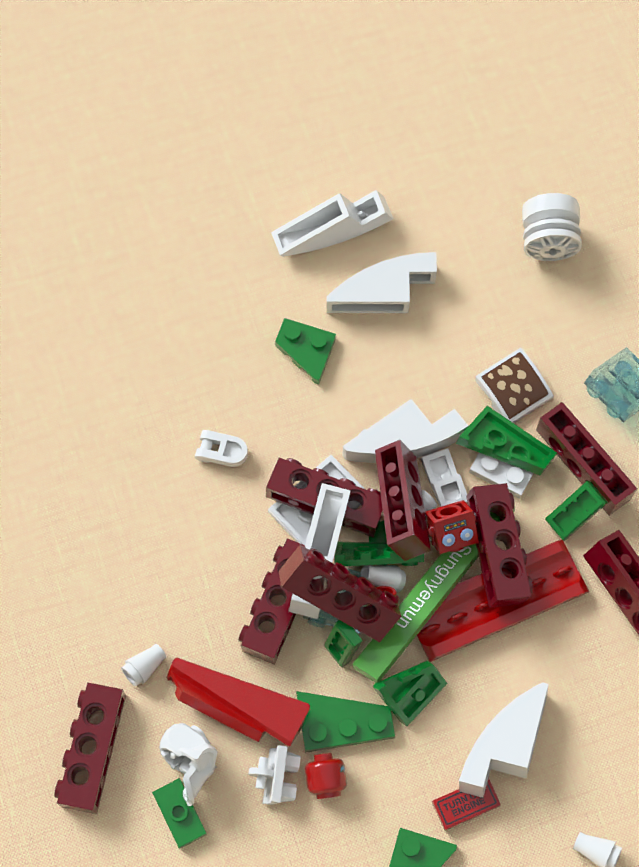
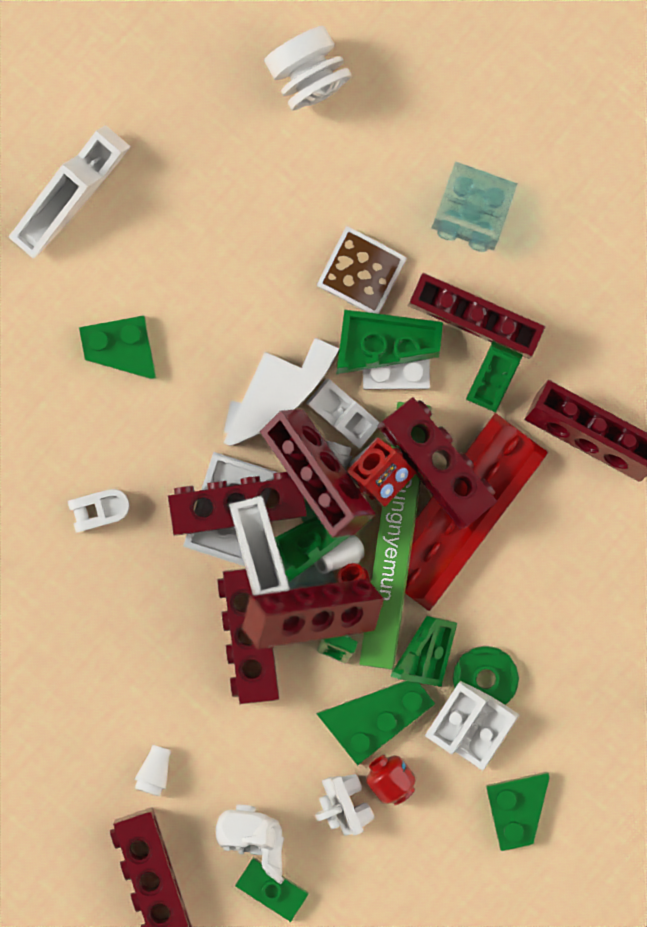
camera: 30 degrees left, 20 degrees up
(238, 703) = (267, 759): red wedge -> none
(383, 285) = (164, 232): white slope -> none
(415, 769) = (472, 725): none -> white slope
(427, 740) = (493, 659): none -> green tile
(460, 807) = (536, 728): red tile -> none
(506, 742) = (545, 651): white slope -> none

